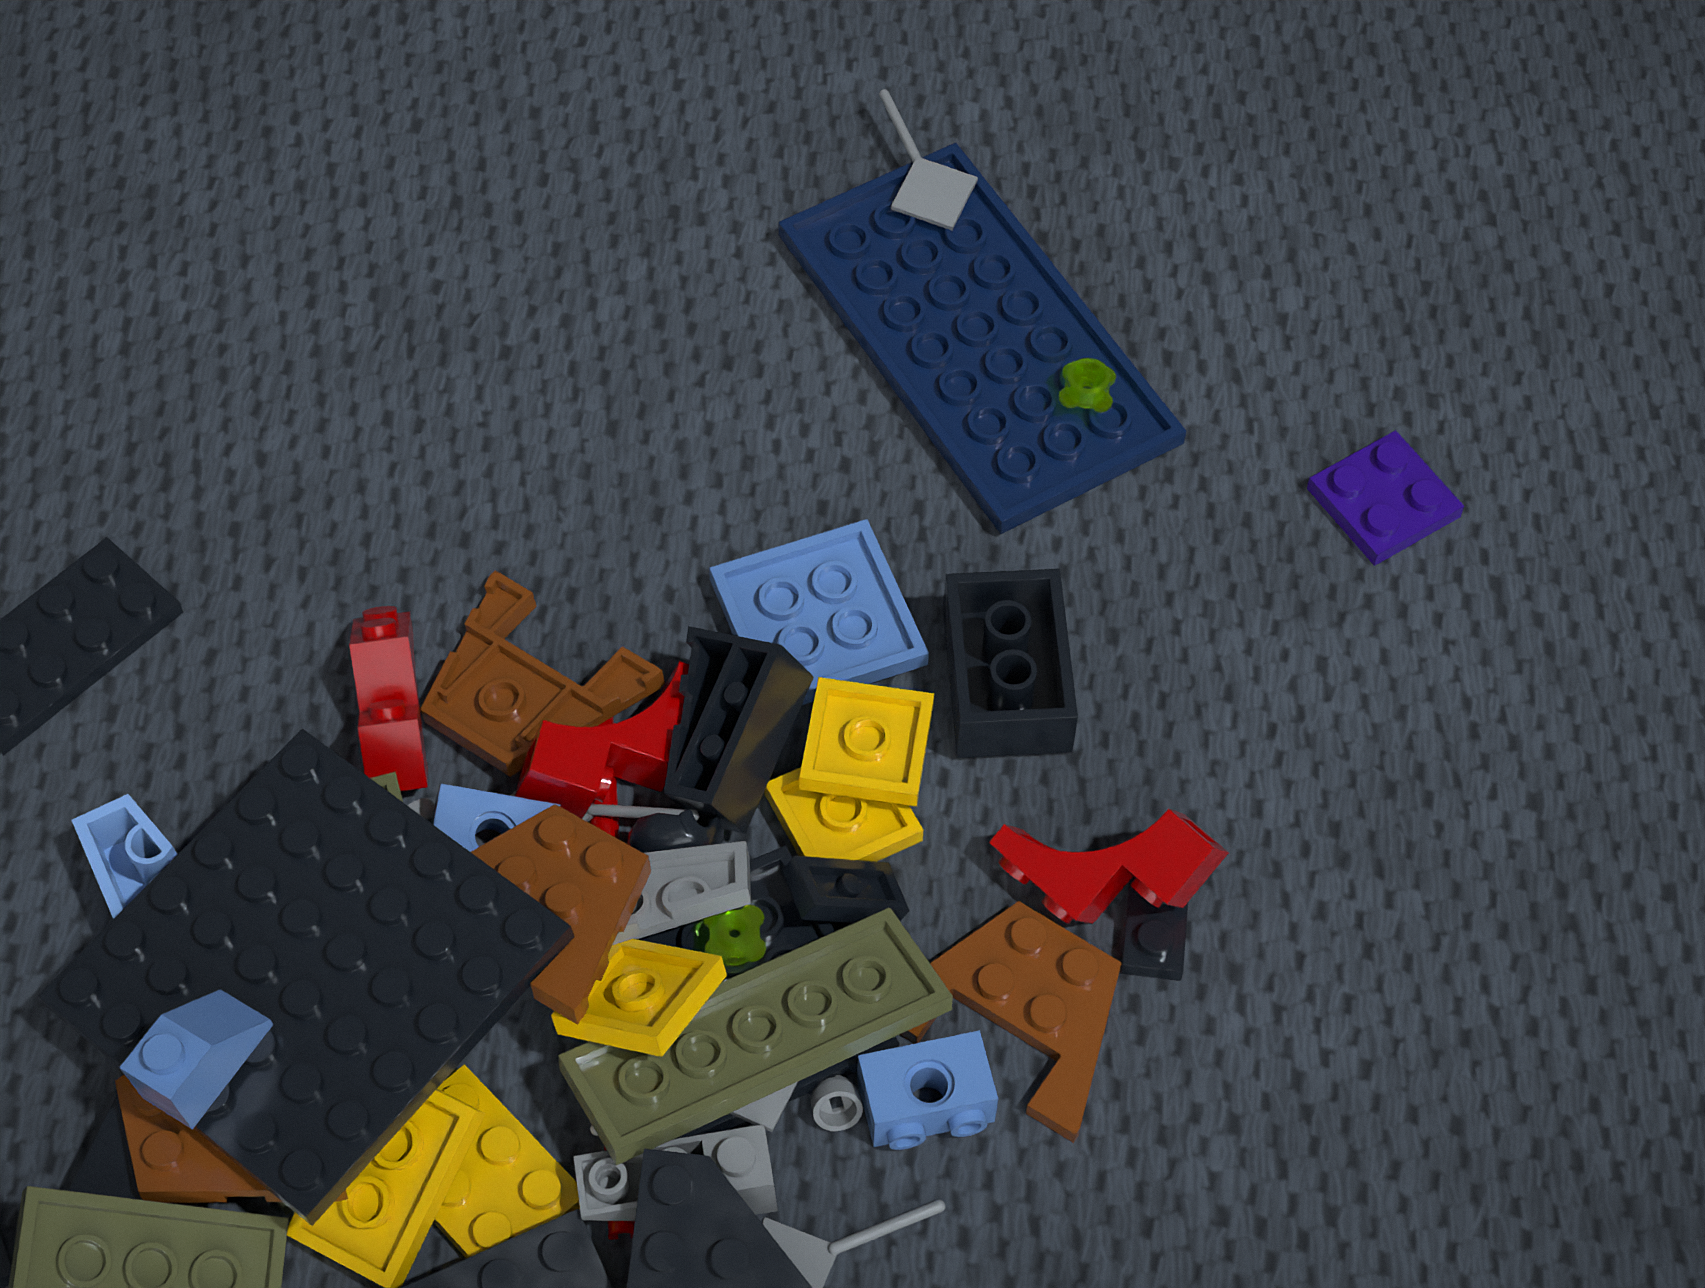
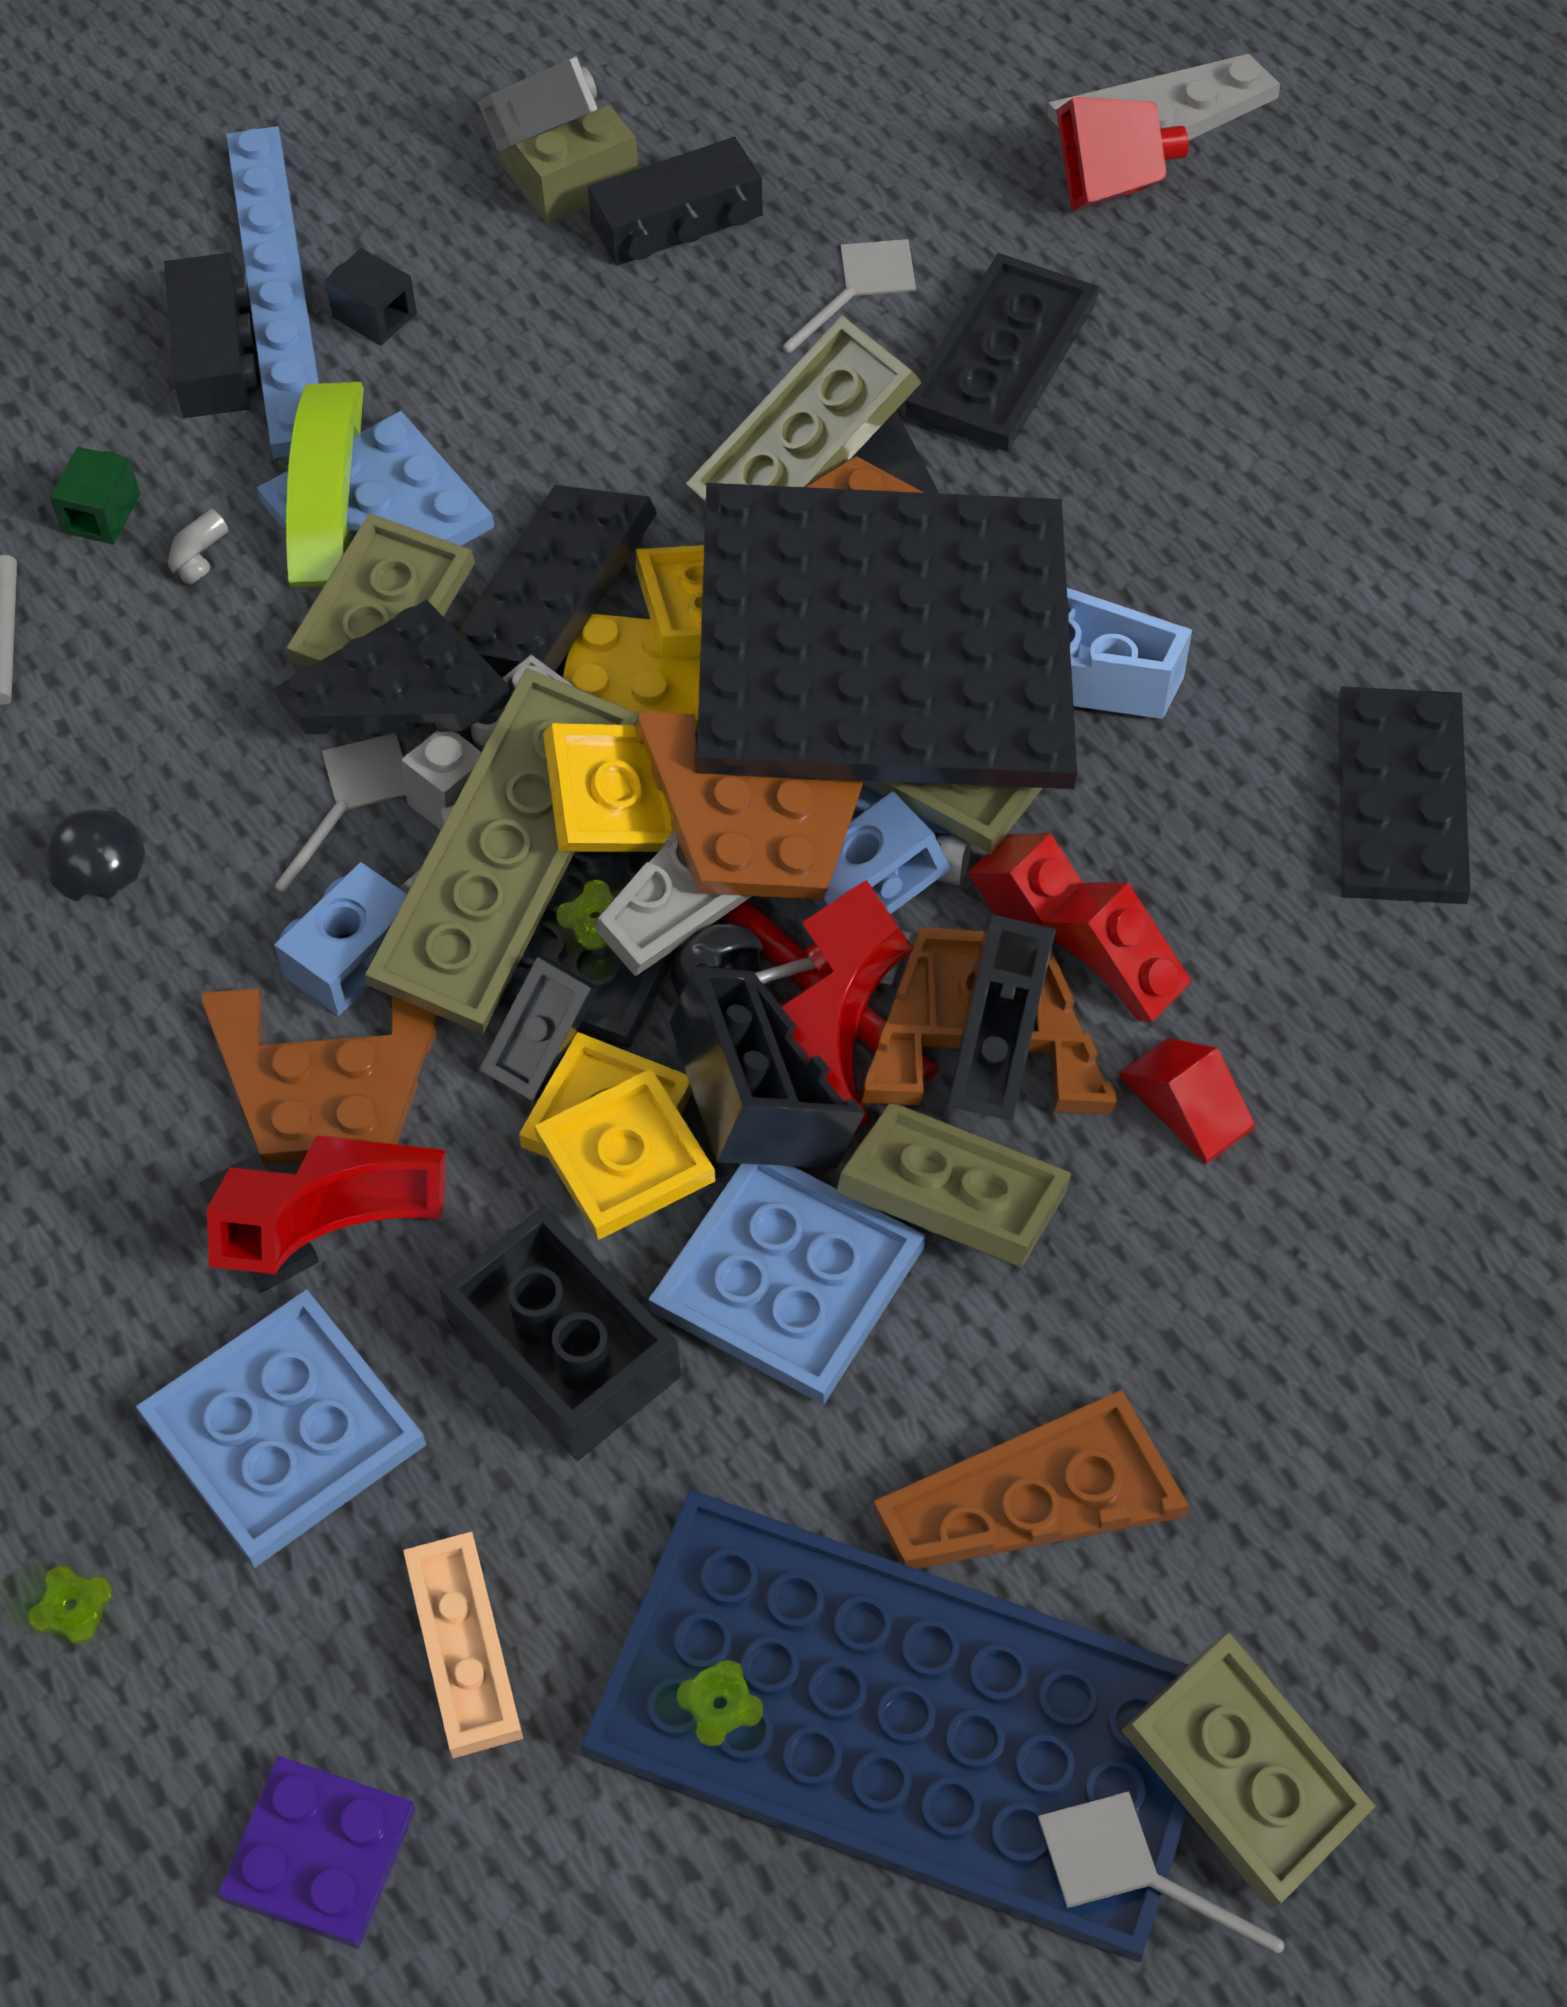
camera: 145 degrees right, 0 degrees up
(194, 1054) = (881, 492): medium blue slope -> none
(440, 553) = (1191, 1095): none -> red slope
(515, 645) = (1000, 1016): none -> black slope
(658, 579) = (954, 1183): none -> olive plate
(765, 387) = (1044, 1487): none -> dark orange wing
(816, 171) = (1248, 1769): none -> olive plate
(1214, 542) = (462, 1645): none -> light nougat plate
(1242, 751) = (281, 1427): none -> medium blue plate
(1457, 750) = (75, 1624): none -> clear neon green plate

